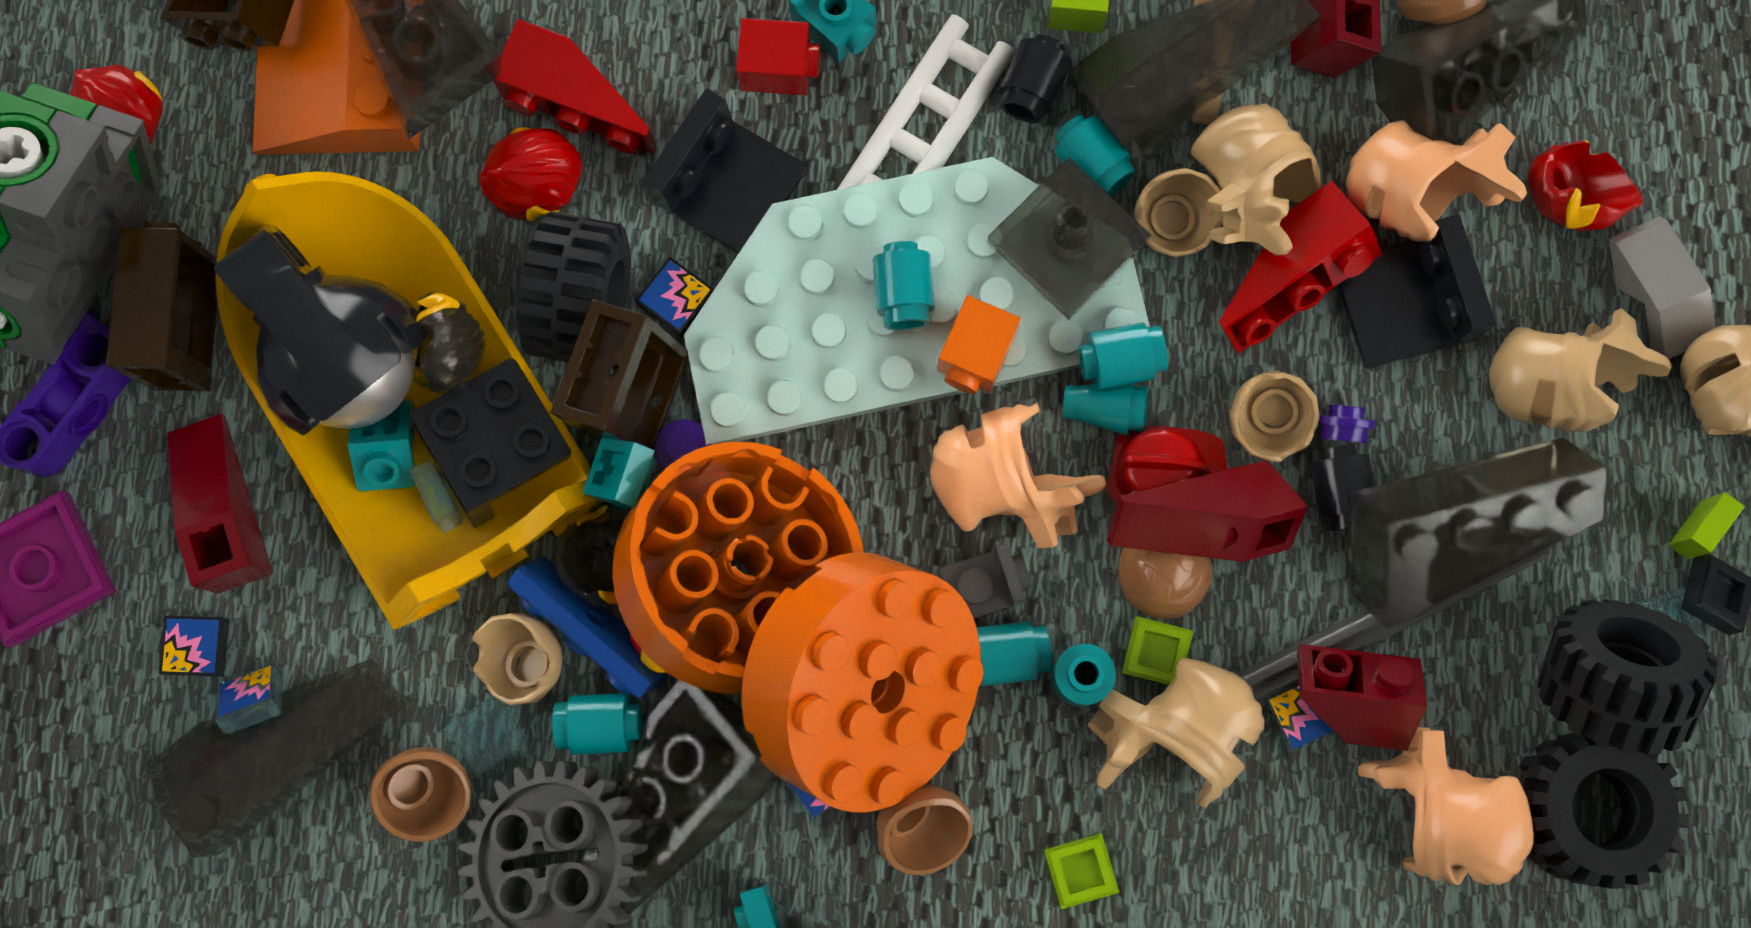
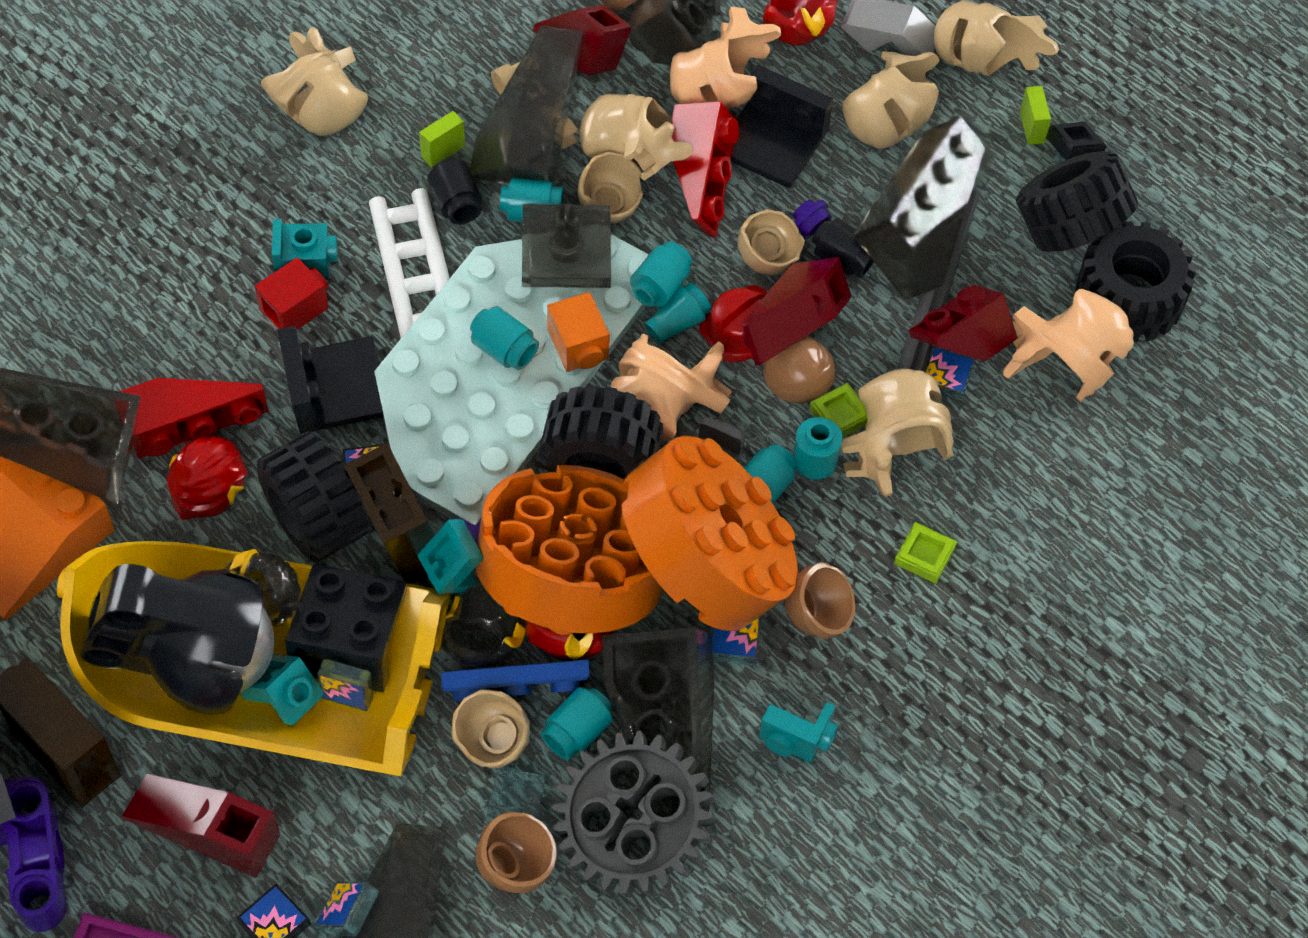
camera: 55 degrees left, 20 degrees down
(879, 480) = (599, 431): none -> black tyre

